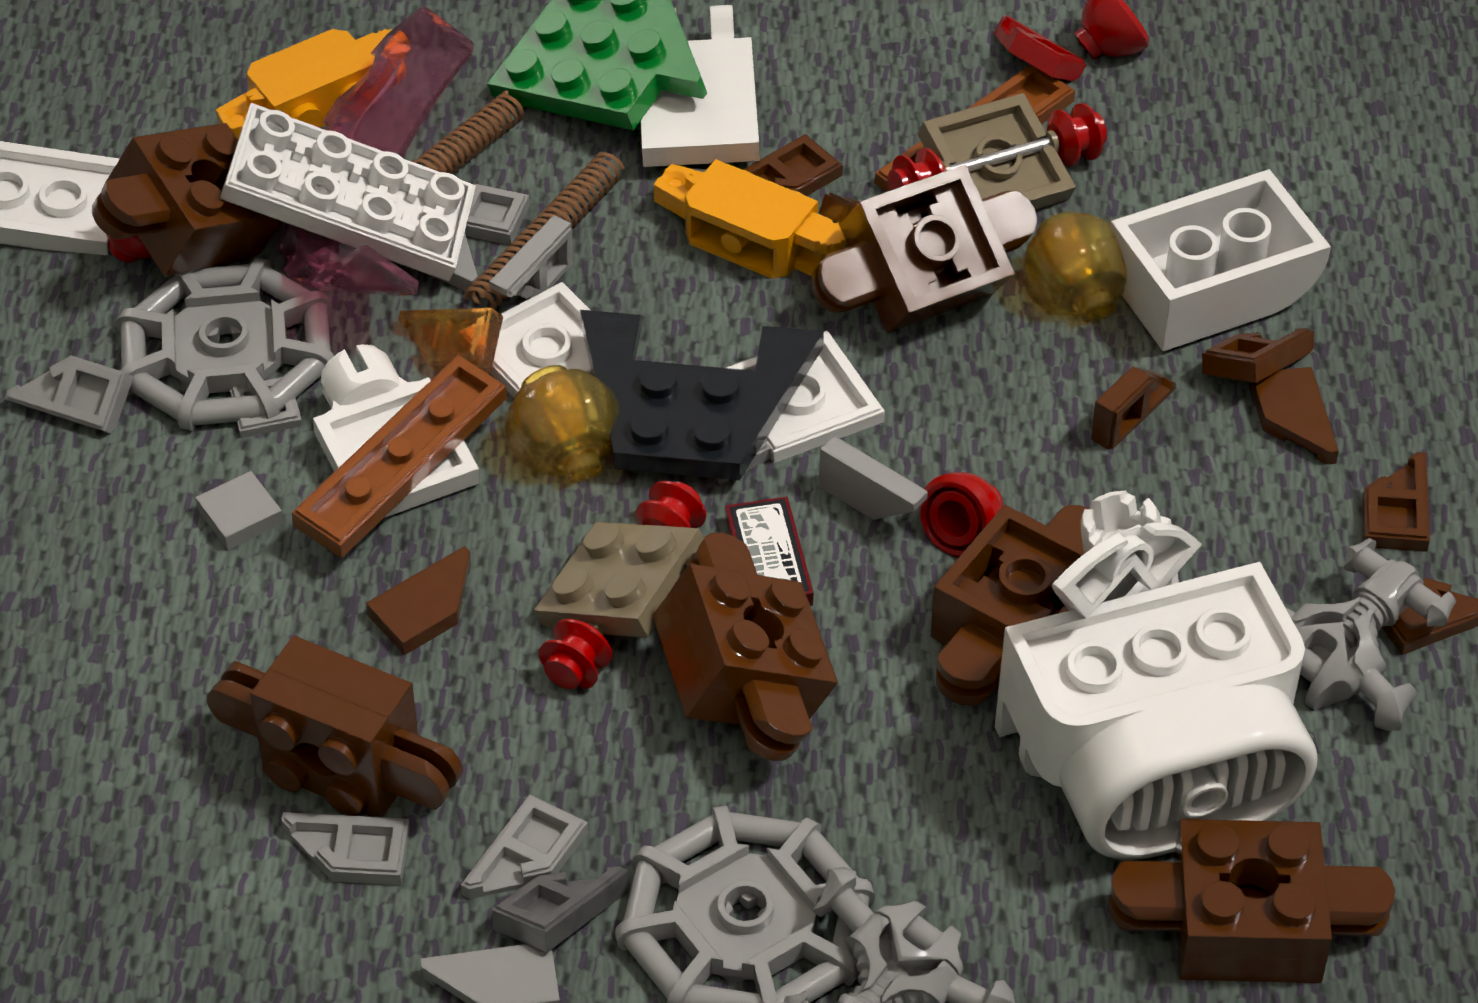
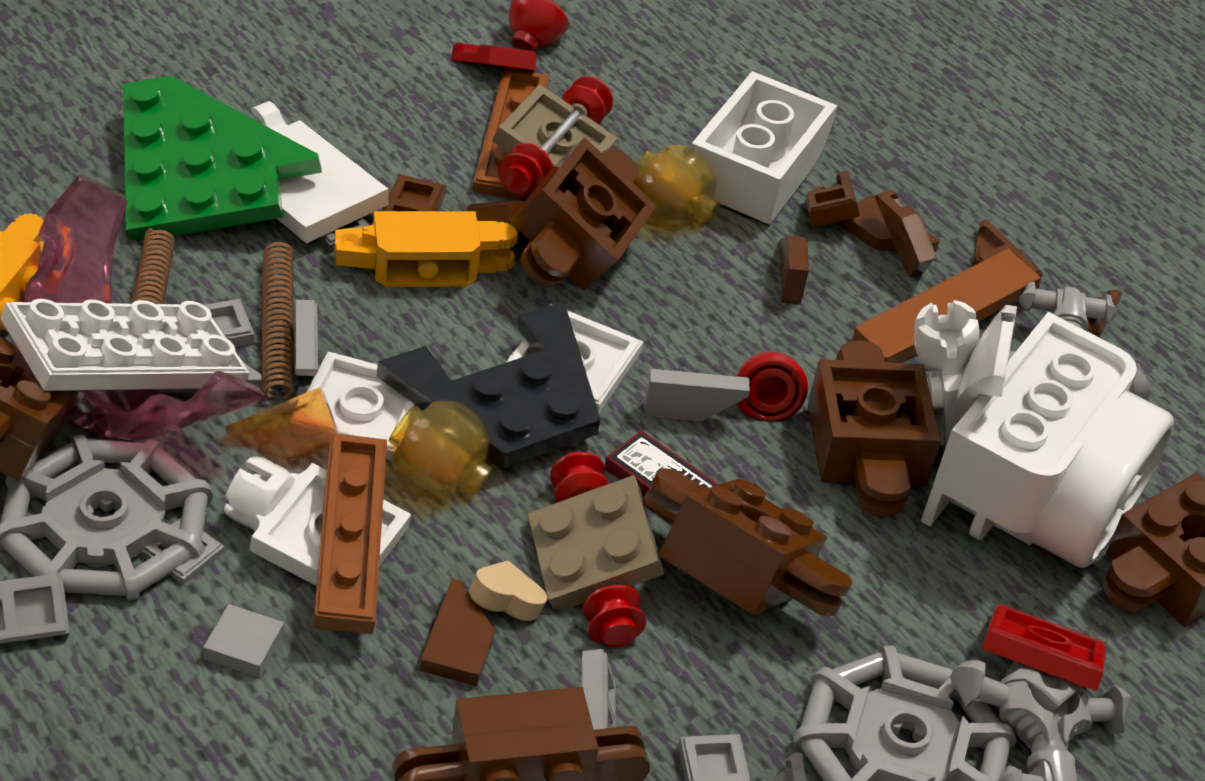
camera: 45 degrees left, 5 degrees down
(478, 717) = (599, 688): none -> light grey tile
(504, 580) = (507, 590): none -> tan tile
(967, 906) = (1046, 646): none -> red tile
(1281, 523) = (982, 287): none -> dark orange tile
(1287, 423) = (906, 233): none -> reddish brown tile

